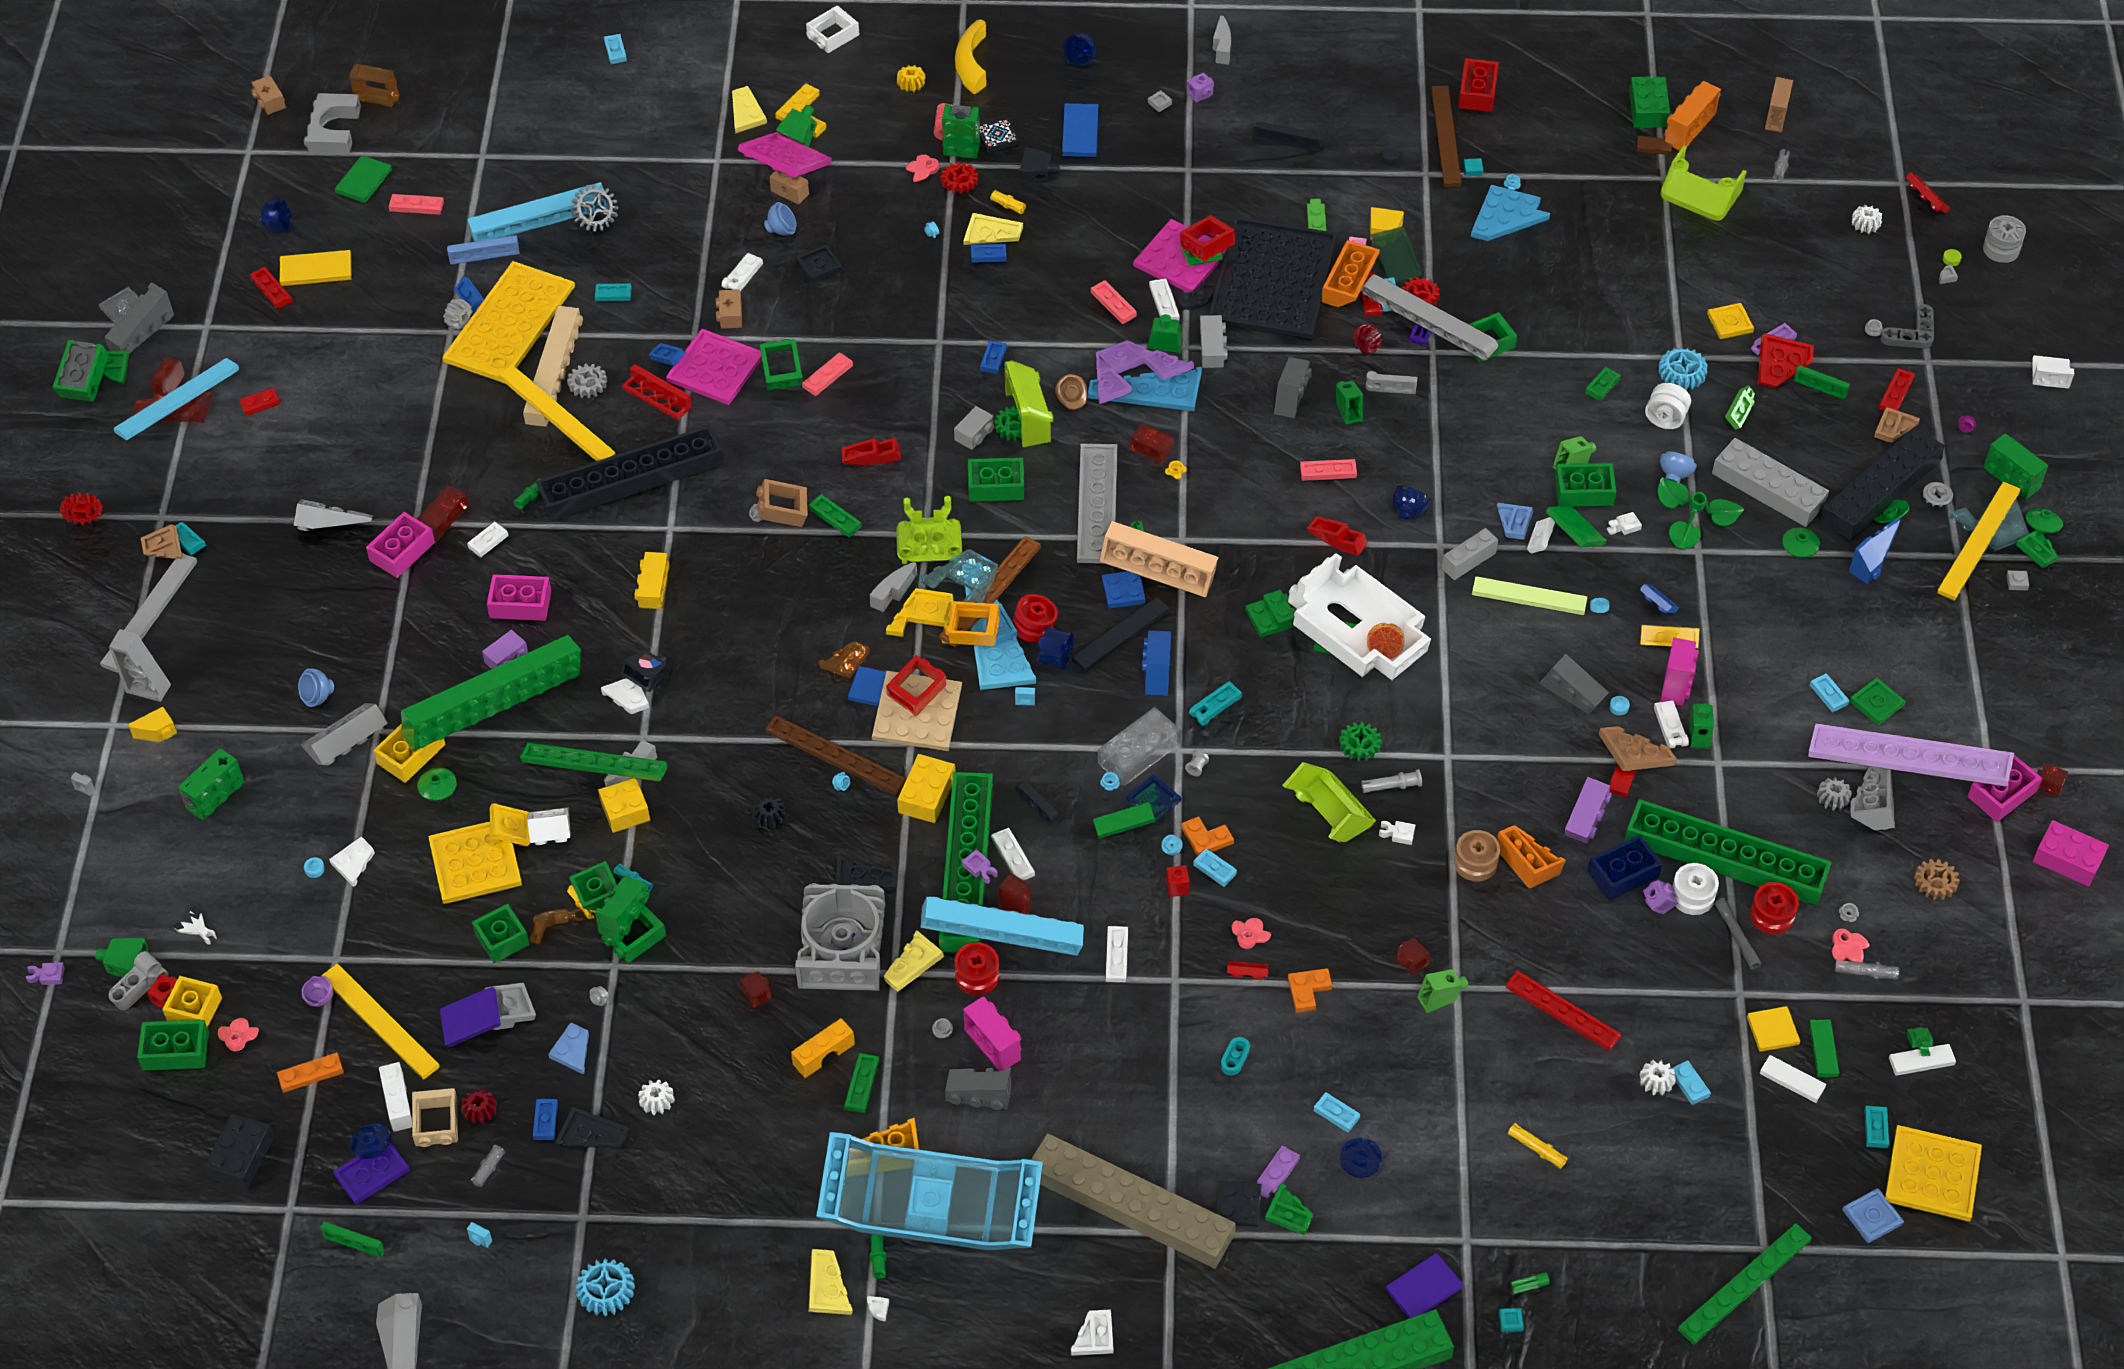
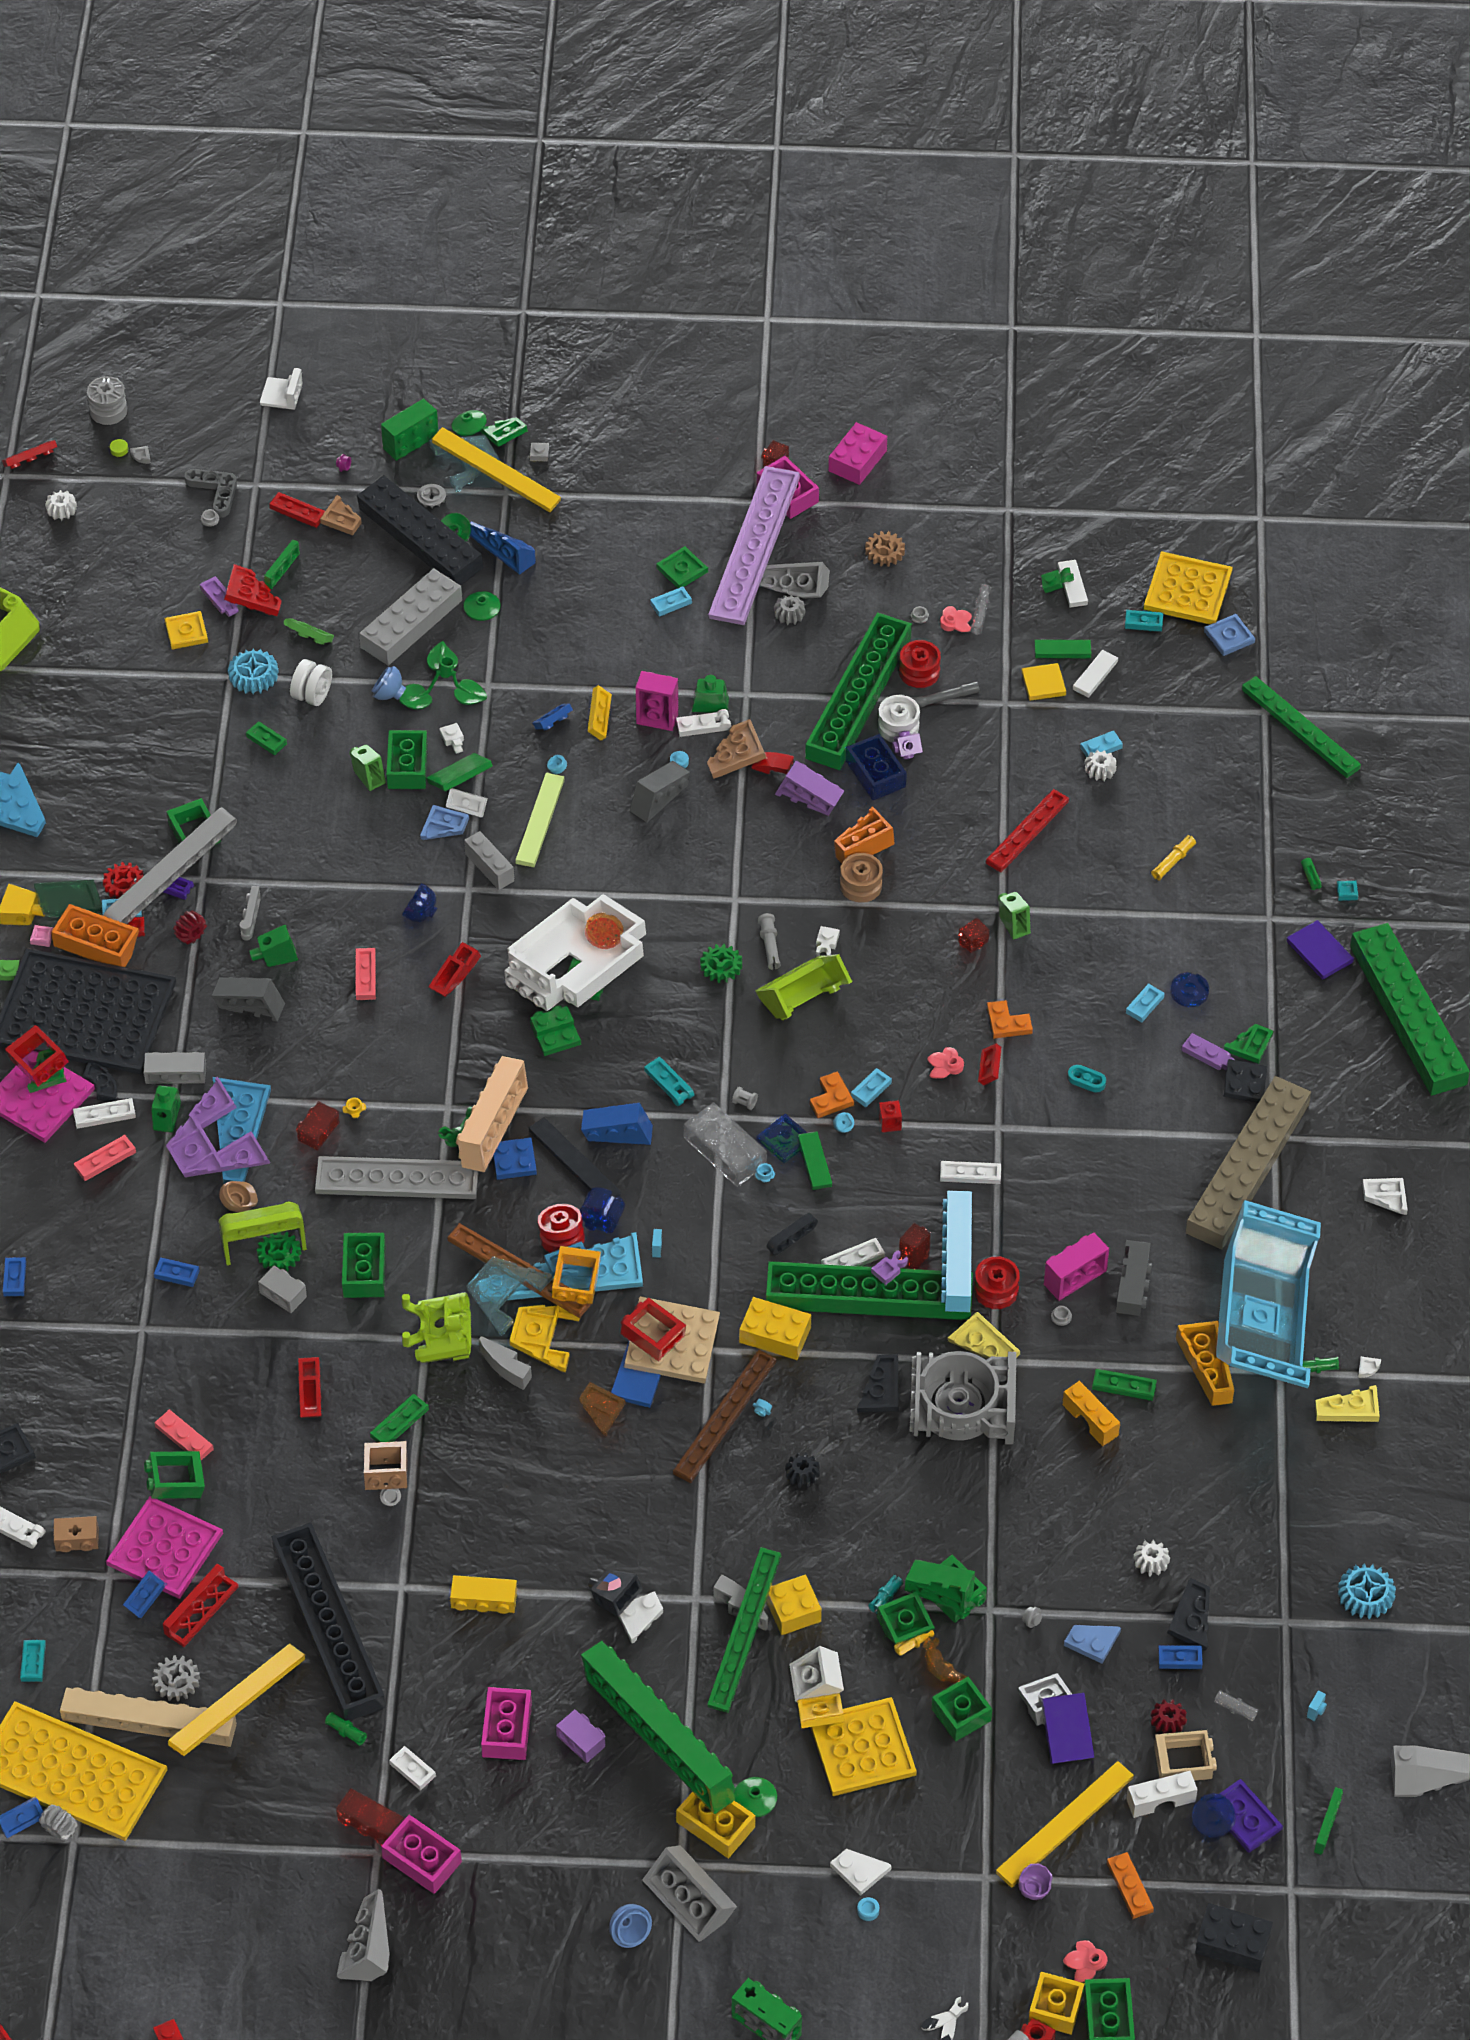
camera: 90 degrees left, 0 degrees up
(756, 988) = (1021, 1475): clear red brick -> none

